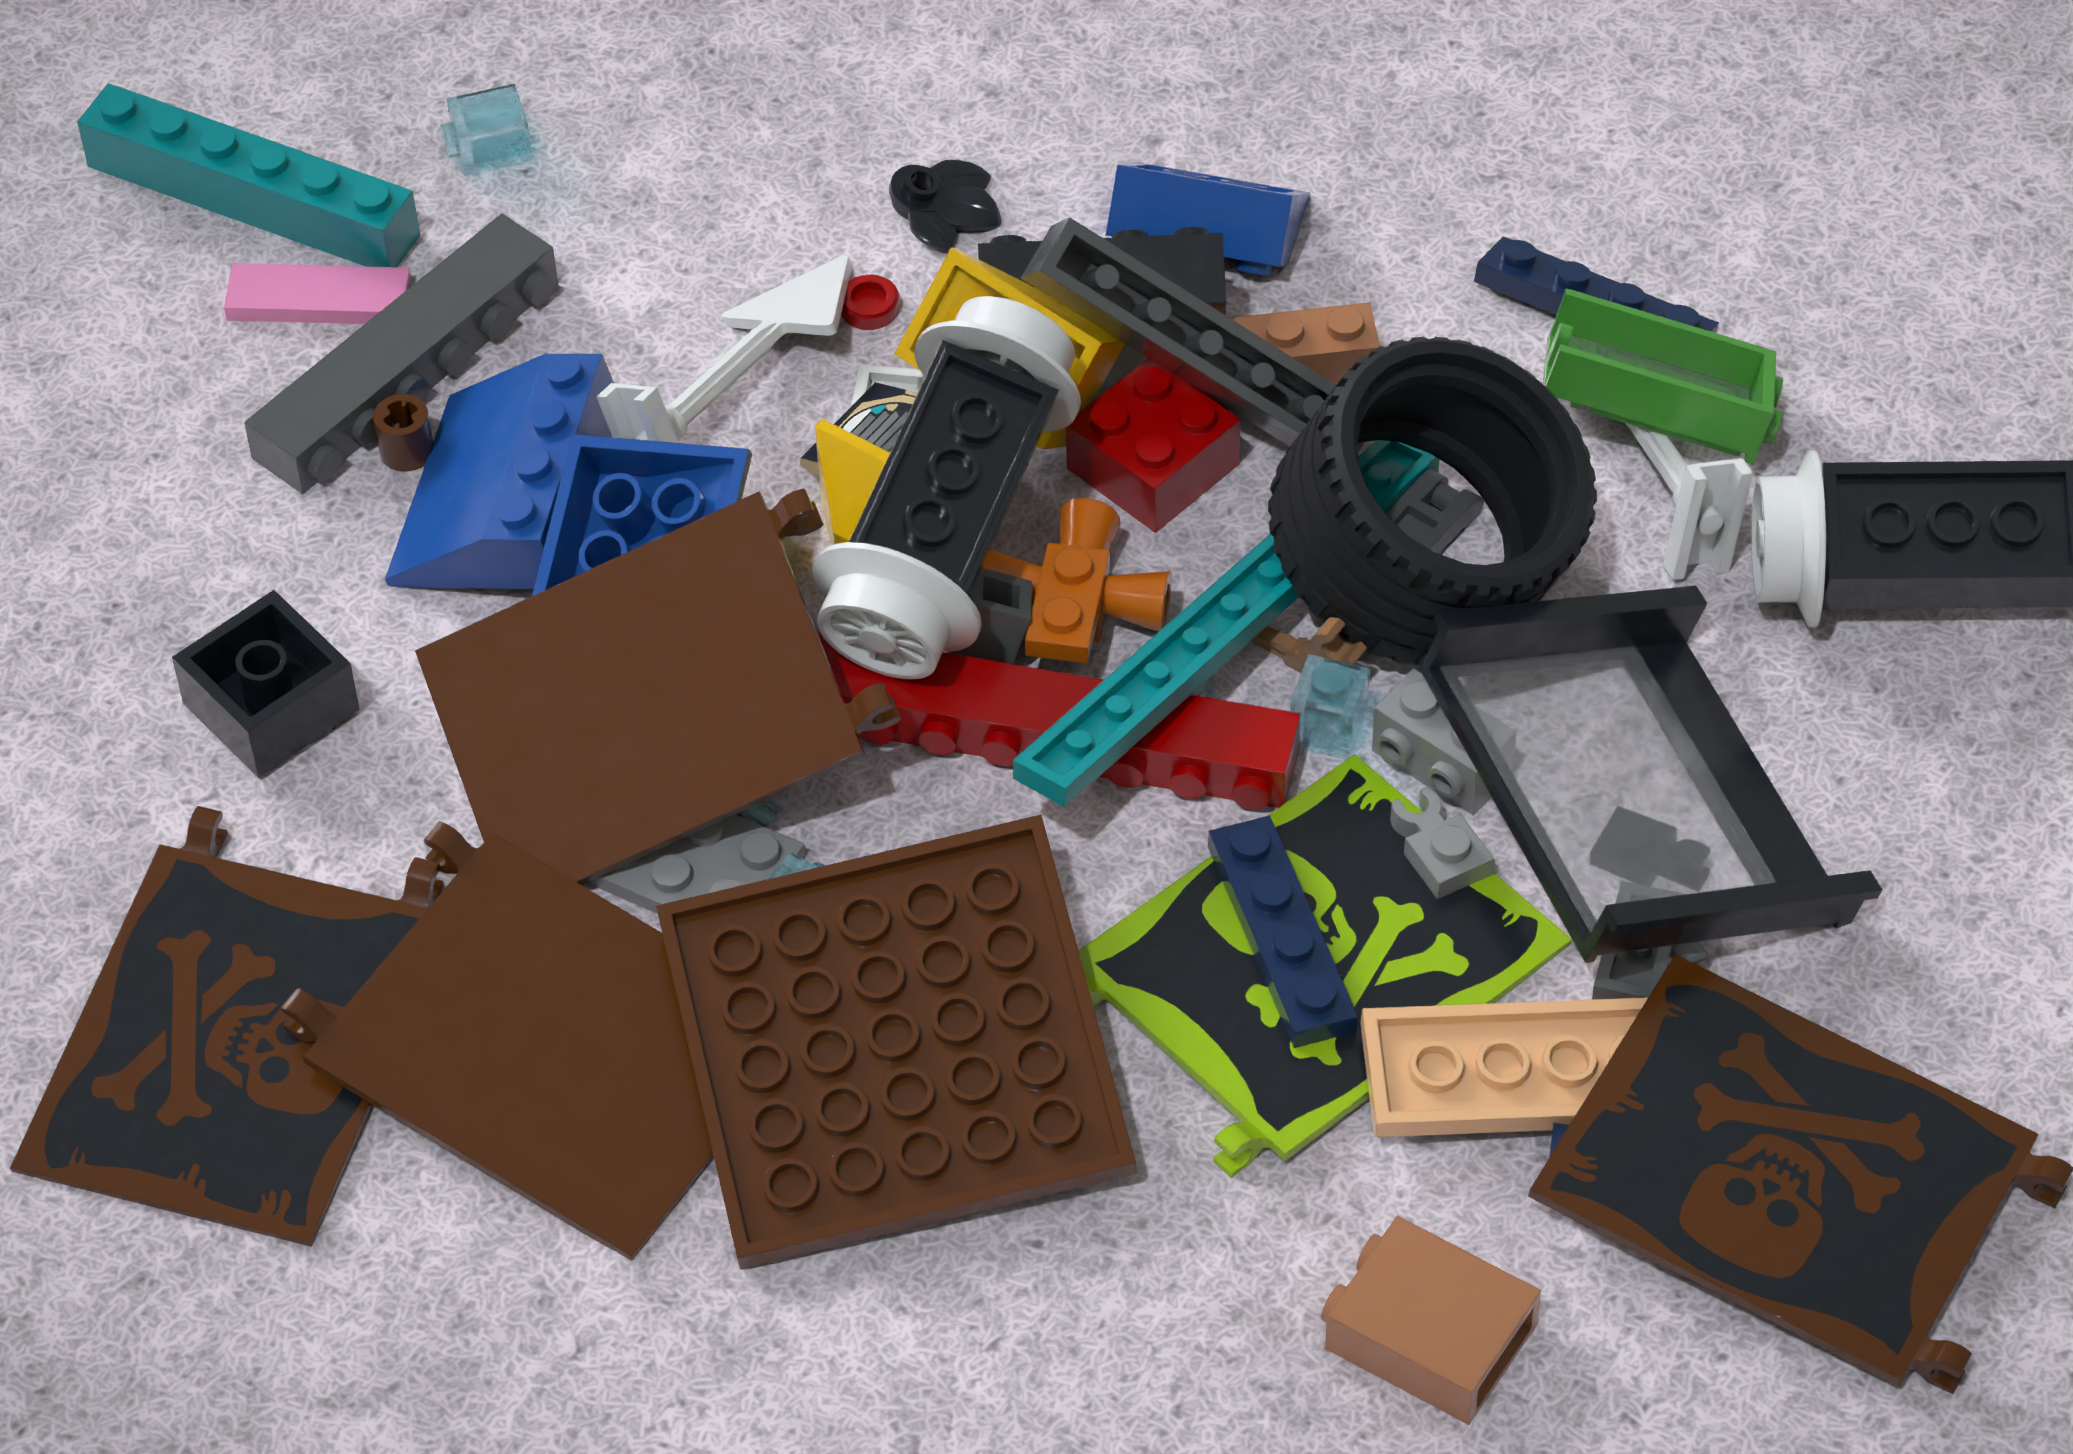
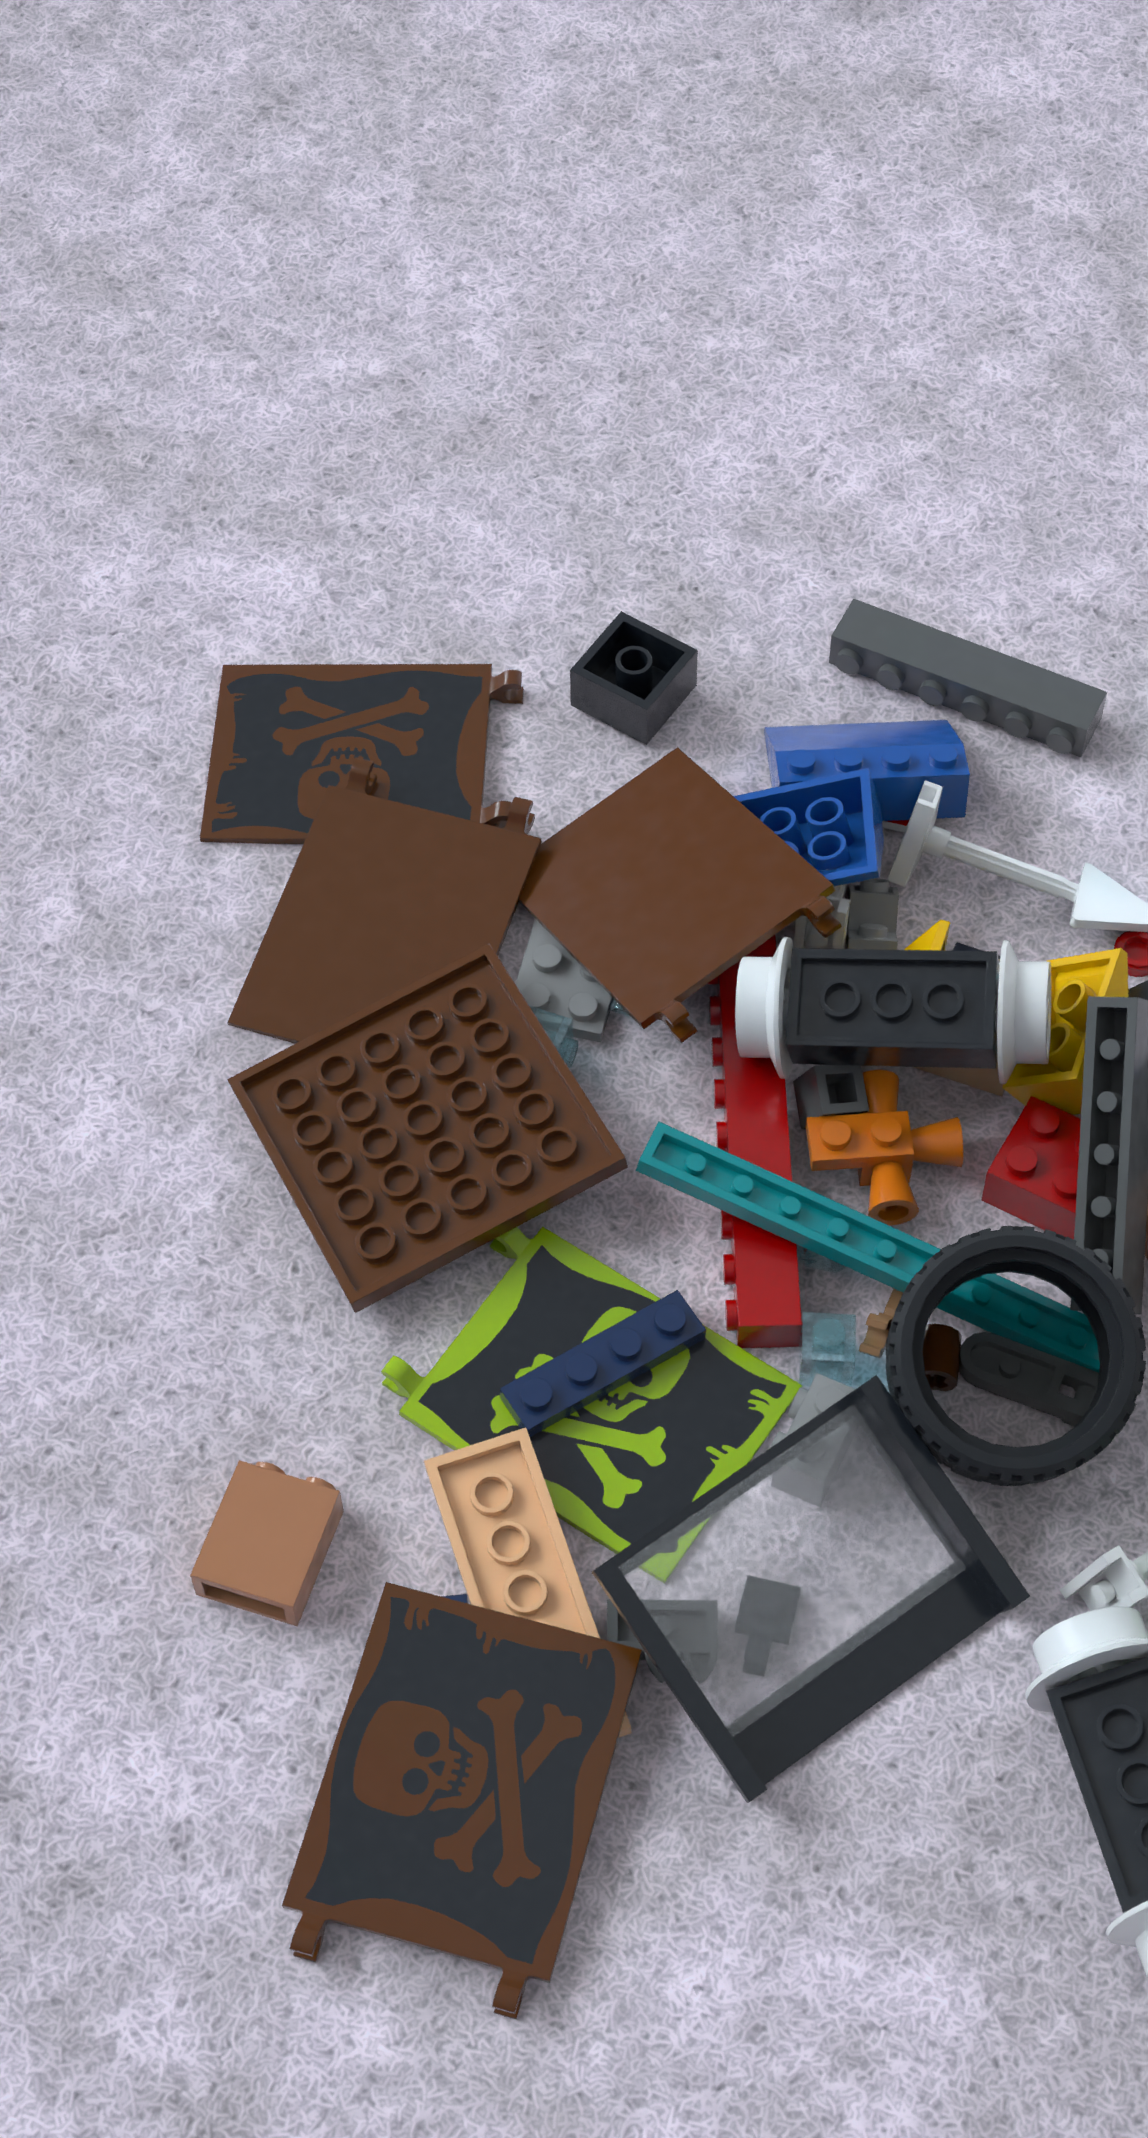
camera: 75 degrees right, 5 degrees up
(249, 178) = (1089, 546): teal brick -> none
(312, 292) = (1009, 613): bright pink tile -> none
(403, 432) = (891, 696): reddish brown gear -> none
(1441, 850) = (718, 1459): light grey plate -> none

